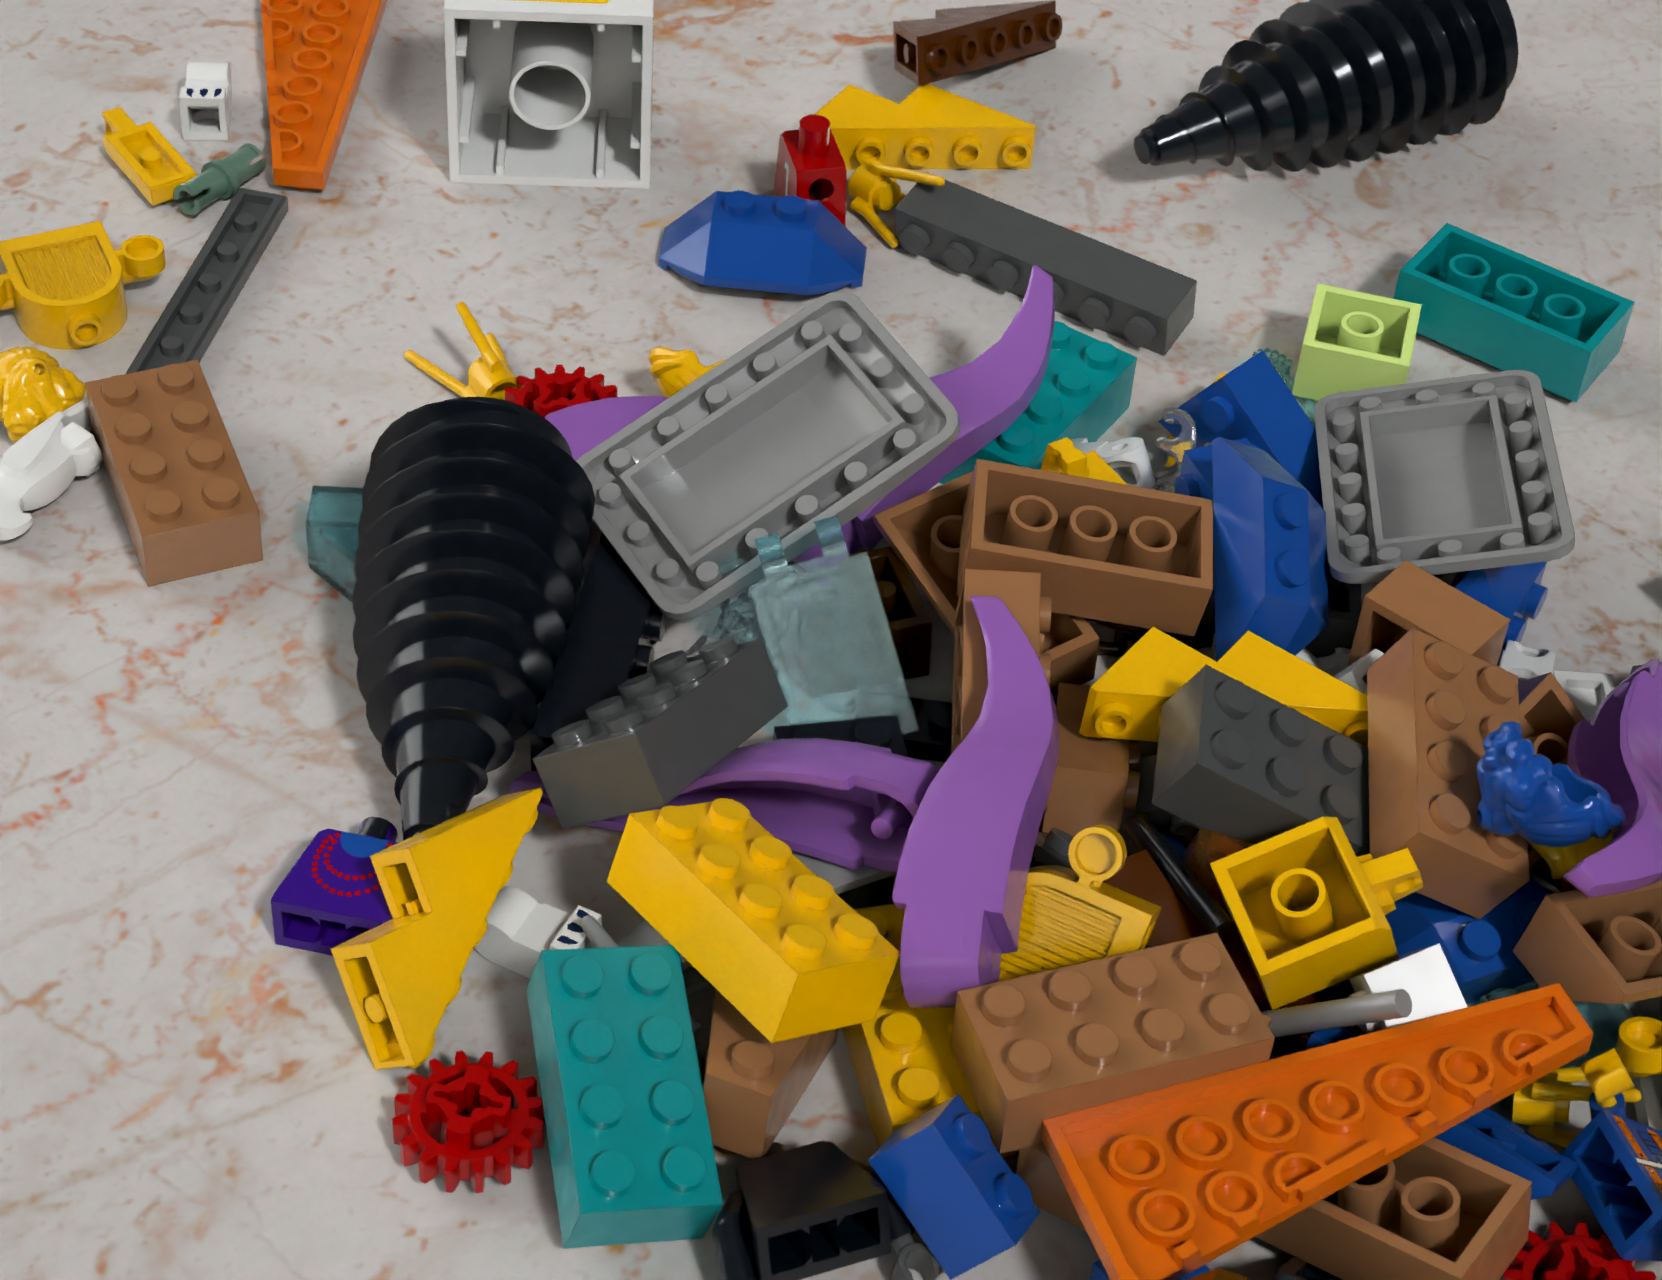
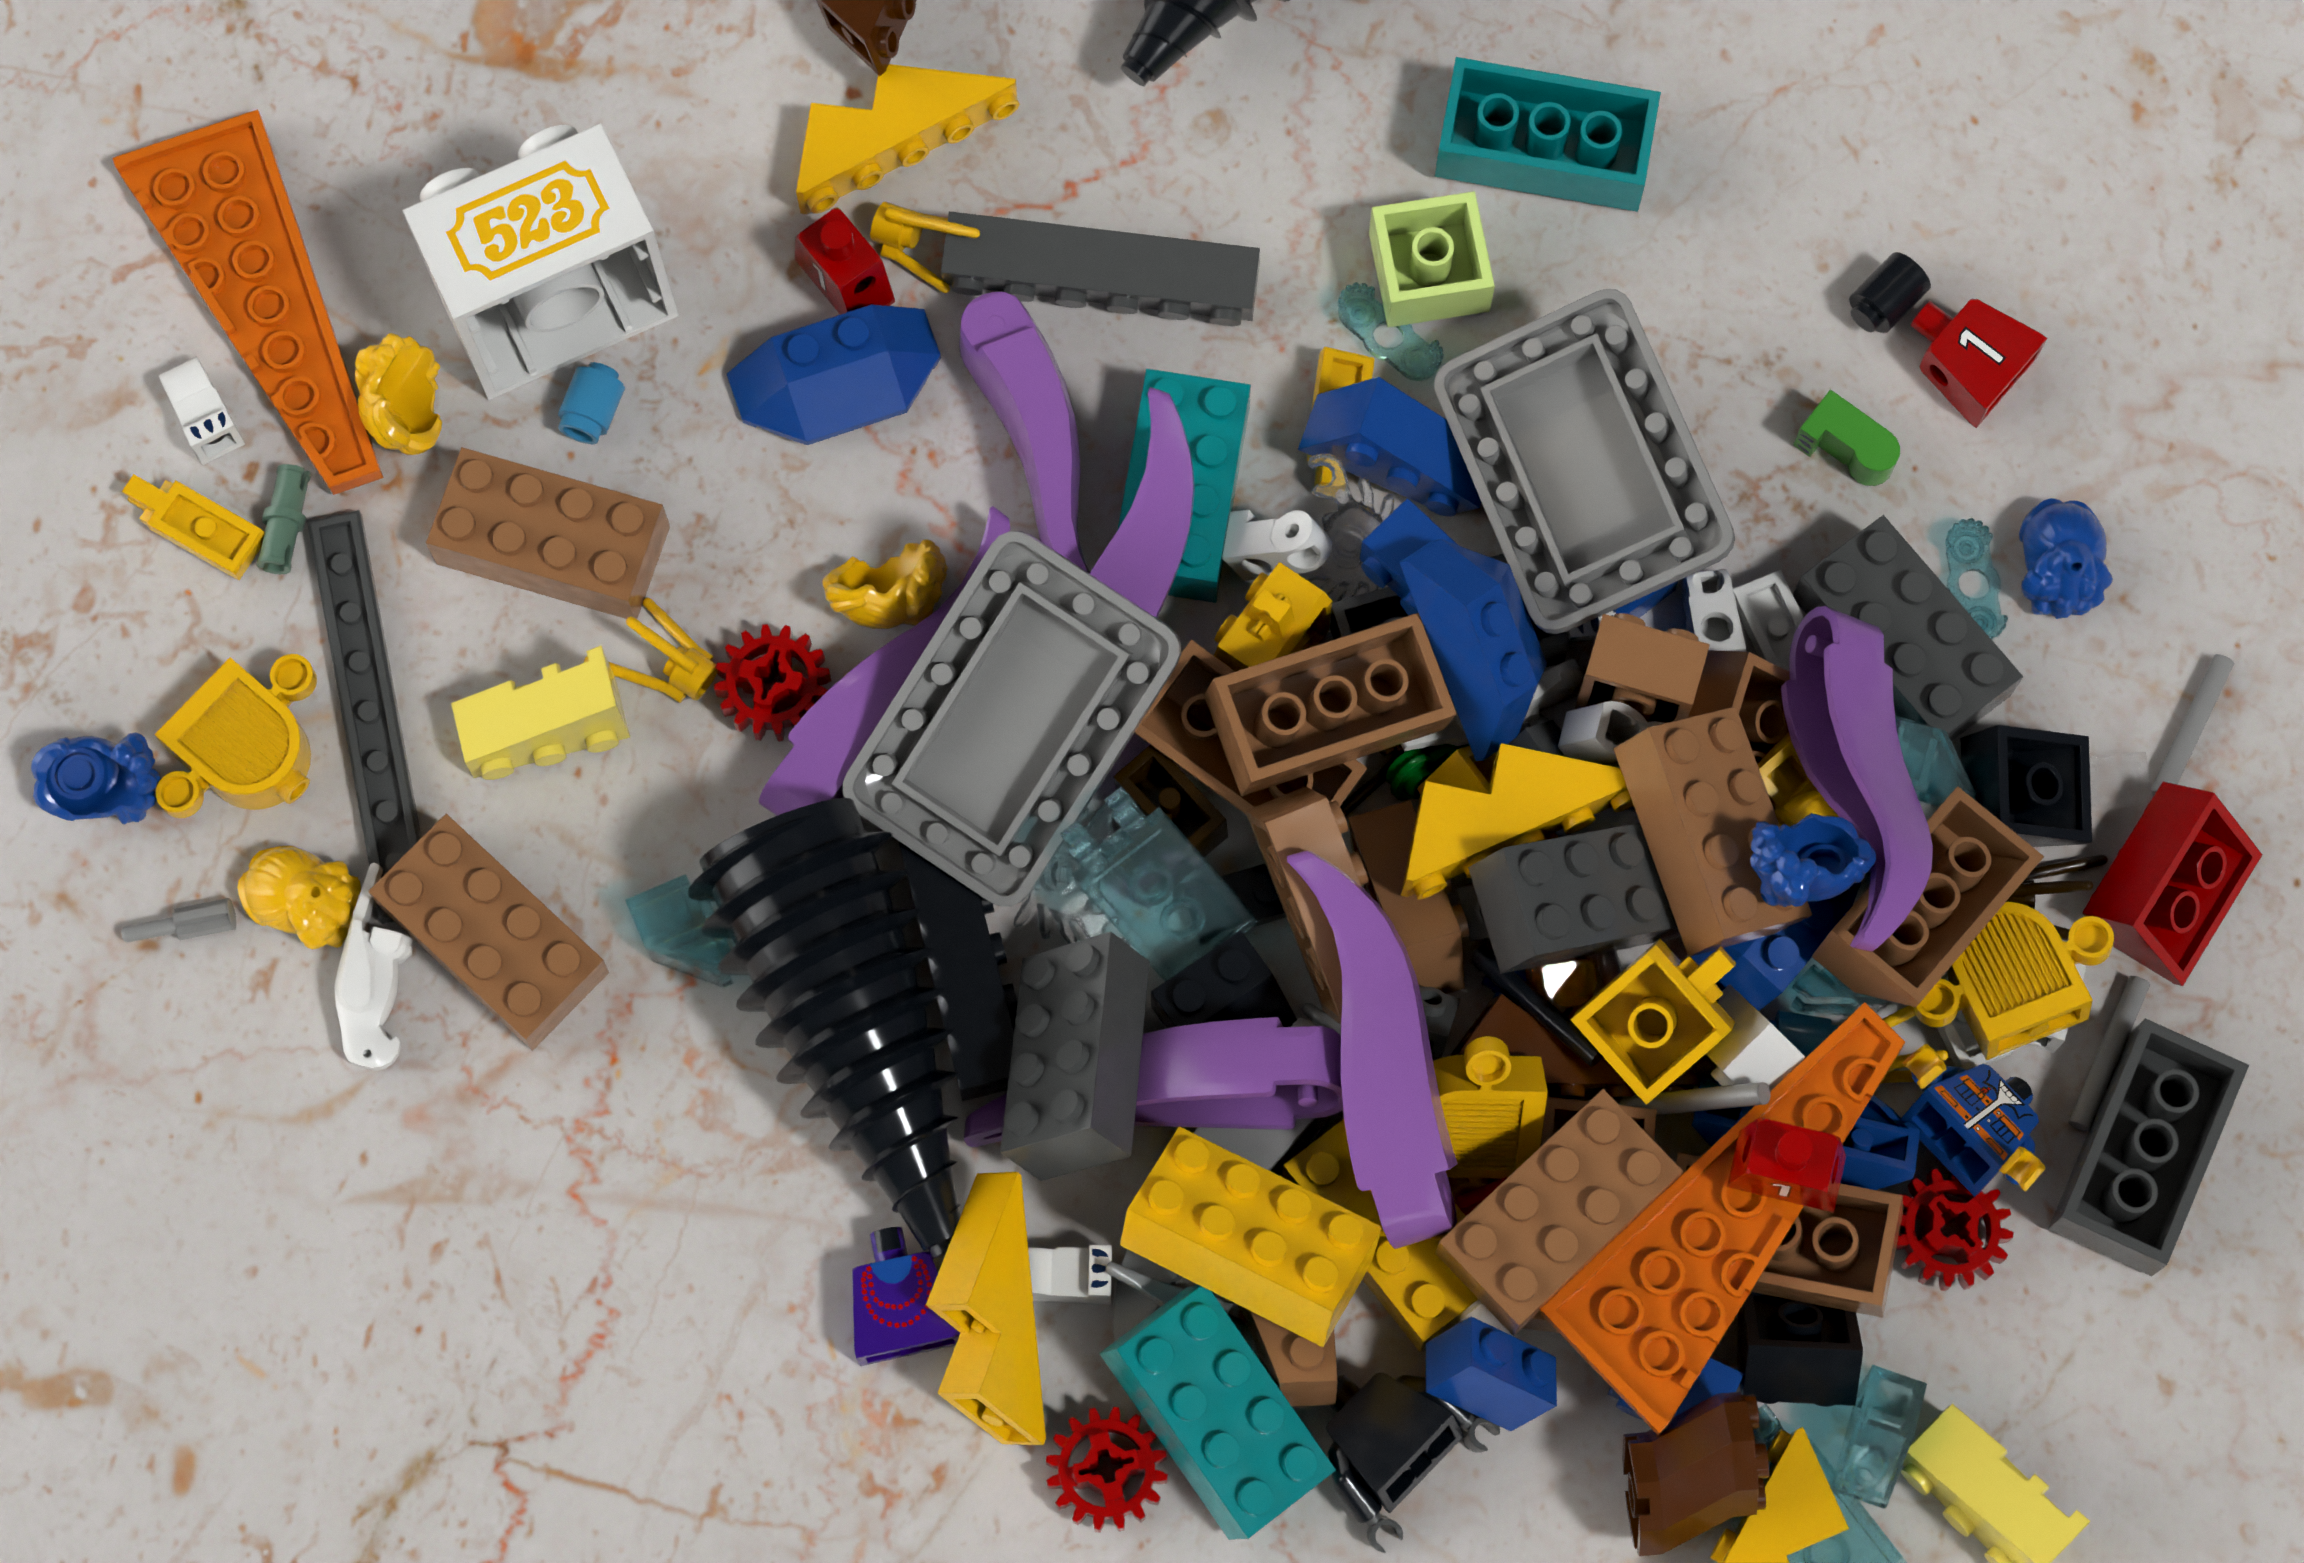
camera: 20 degrees left, 30 degrees up
(342, 355) = (541, 719): none -> light yellow wedge
(376, 131) = (398, 394): none -> yellow hair
(434, 254) = (548, 534): none -> medium nougat brick
(532, 197) = (590, 403): none -> dark azure brick
(924, 295) = (1032, 401): none -> medium lavender animal
(1408, 1063) = (1788, 1163): none -> red torso

